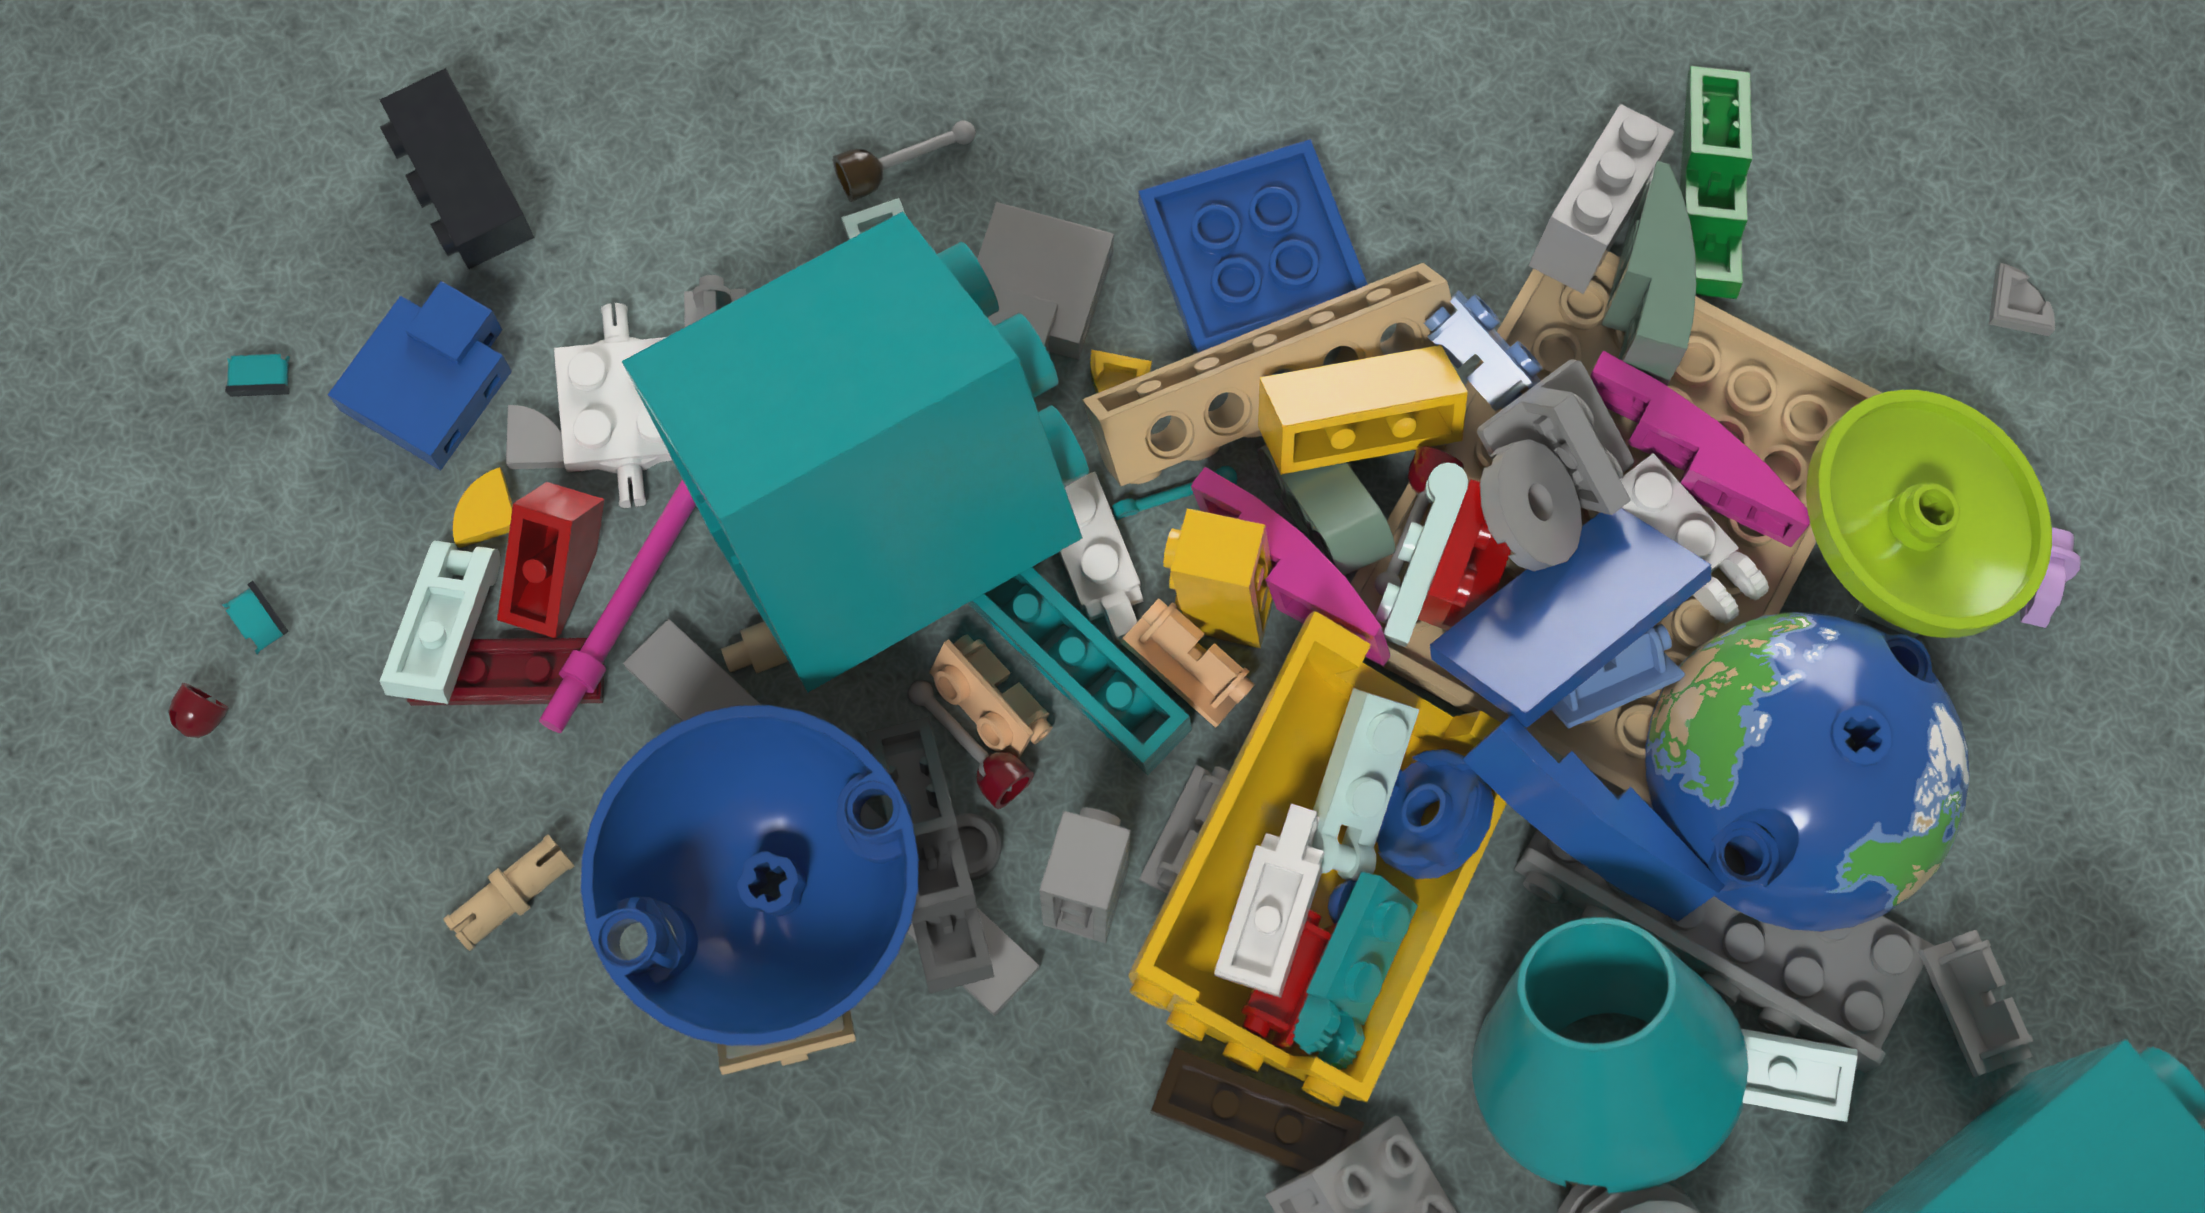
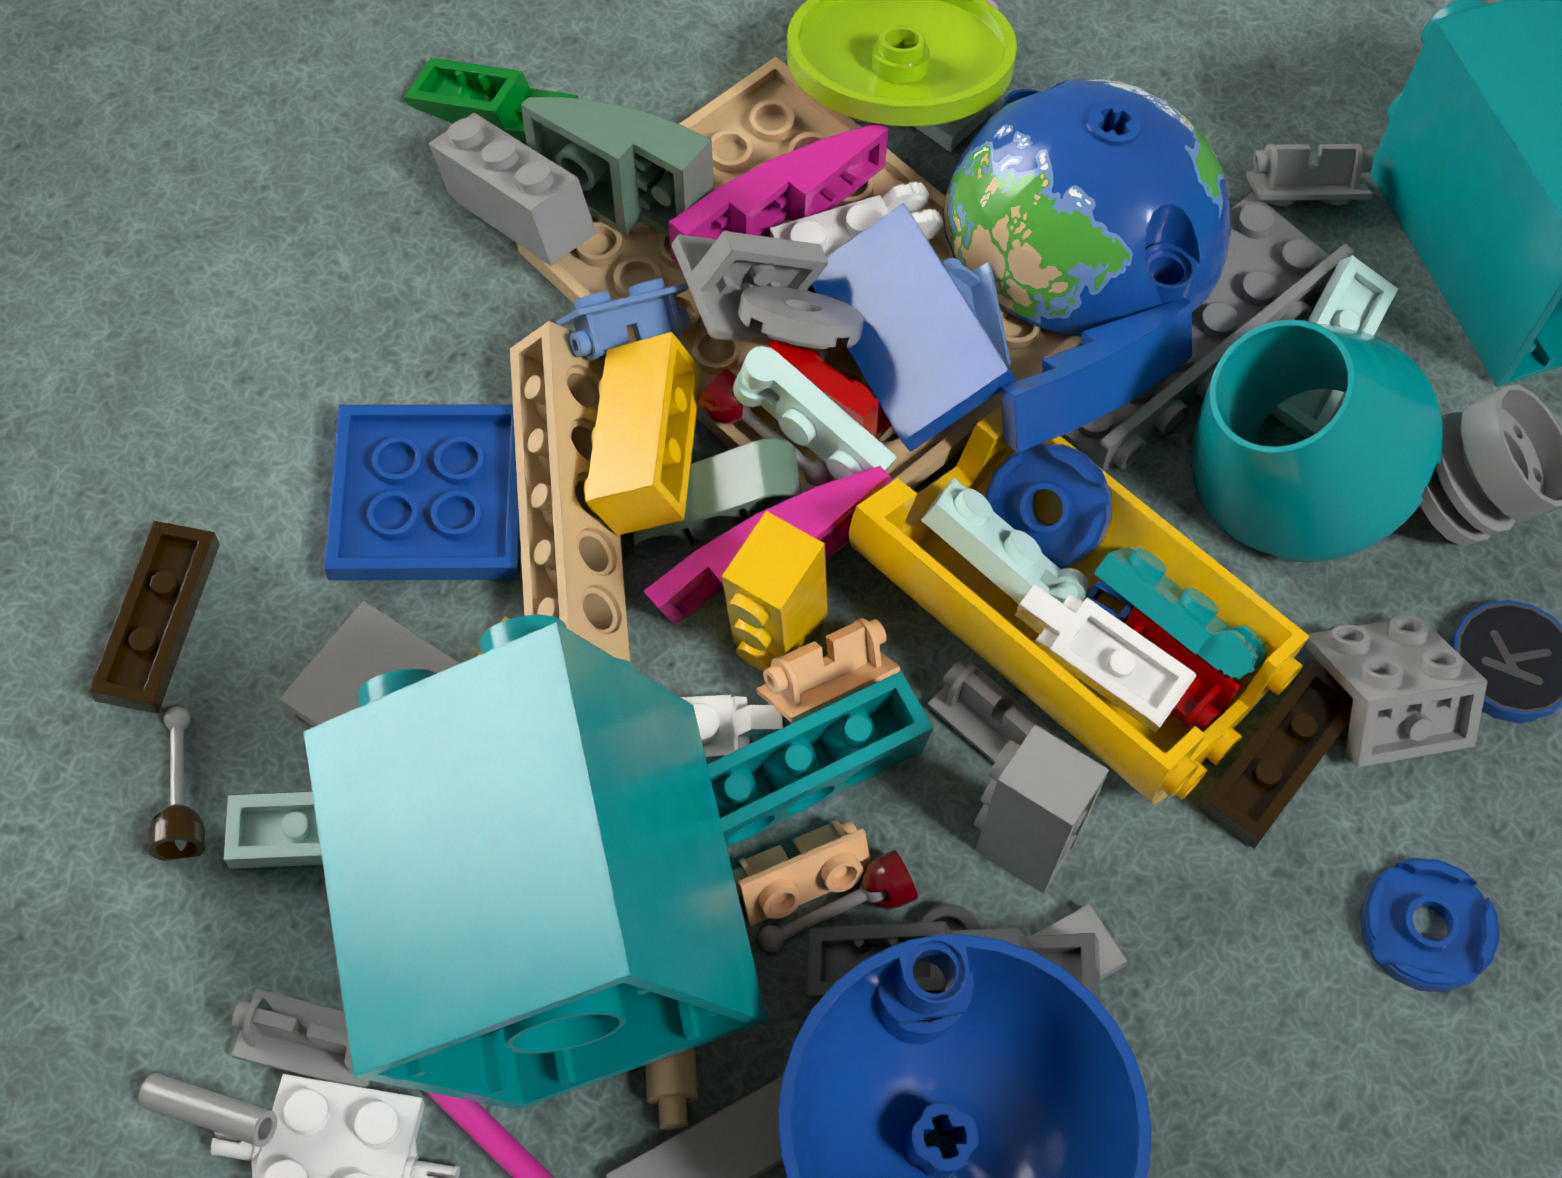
camera: 75 degrees left, 10 degrees down
(630, 290) = (208, 1109): none -> light grey piece
(1049, 75) = (154, 617): none -> dark brown plate
(1132, 507) = (647, 628): teal hinge -> none

